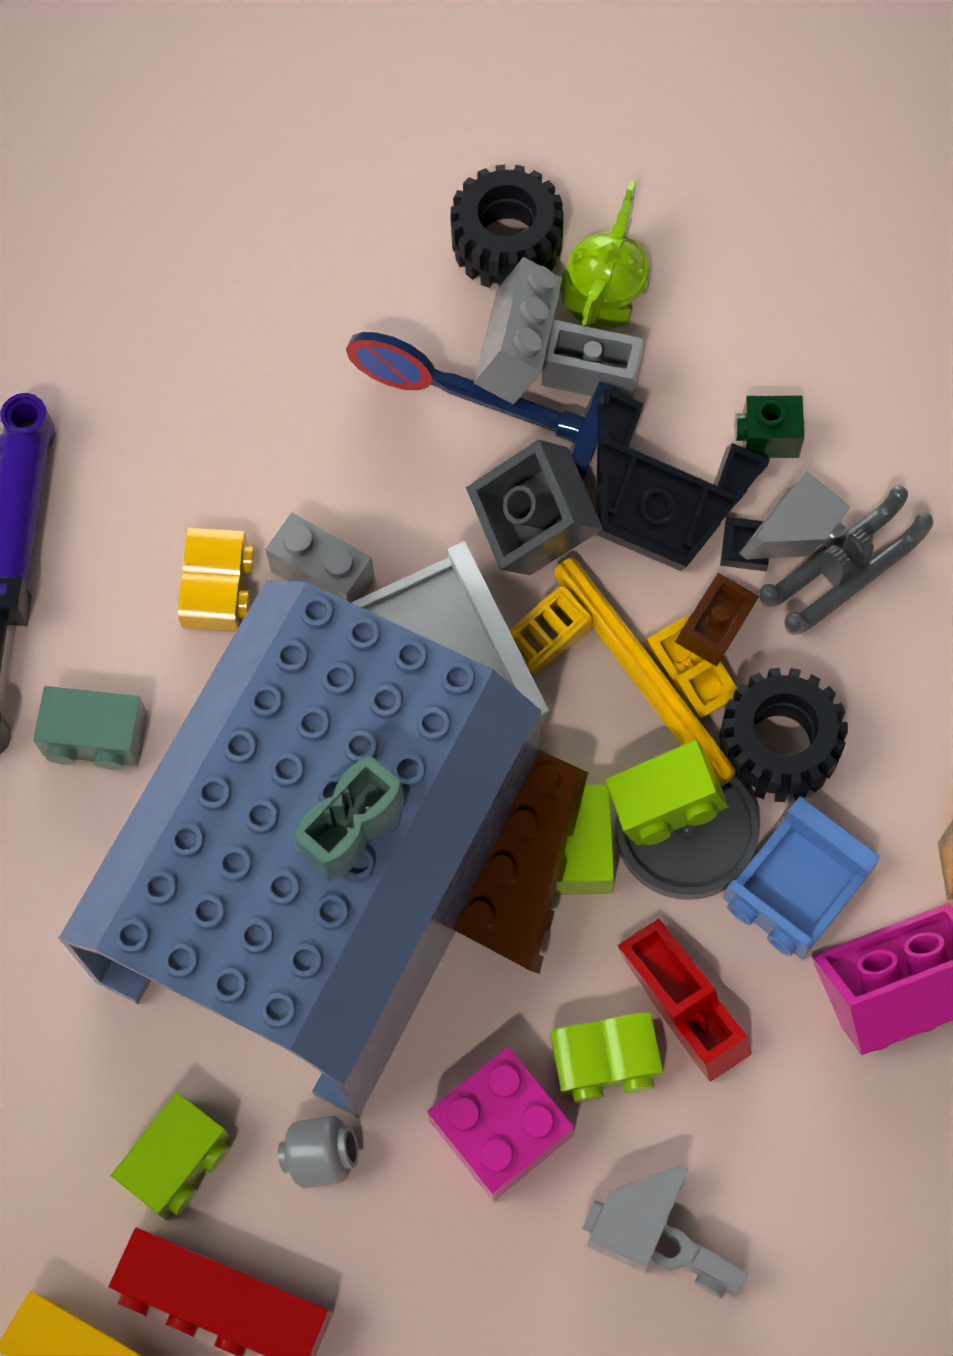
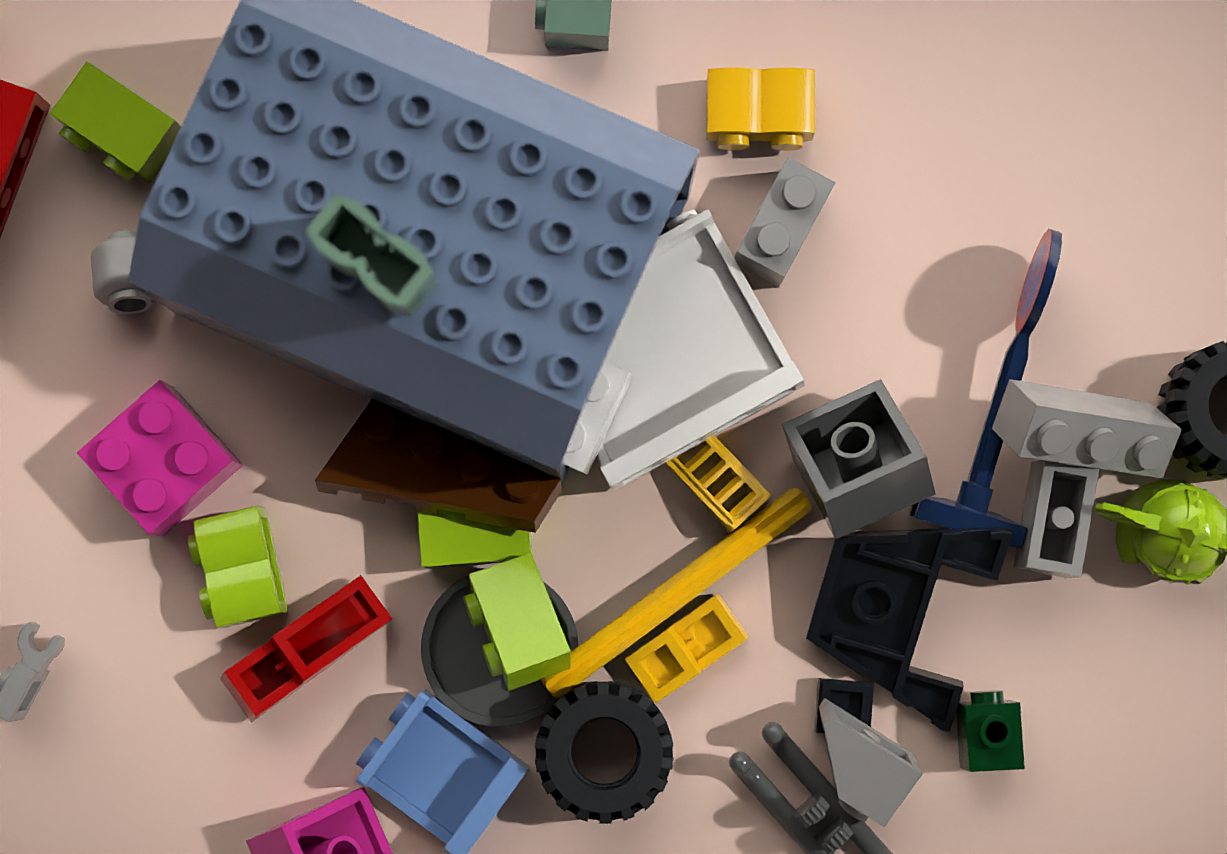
camera: 80 degrees right, 15 degrees up
(634, 1217) = (71, 603): light grey slope -> none
(717, 619) = (739, 674): reddish brown plate -> none

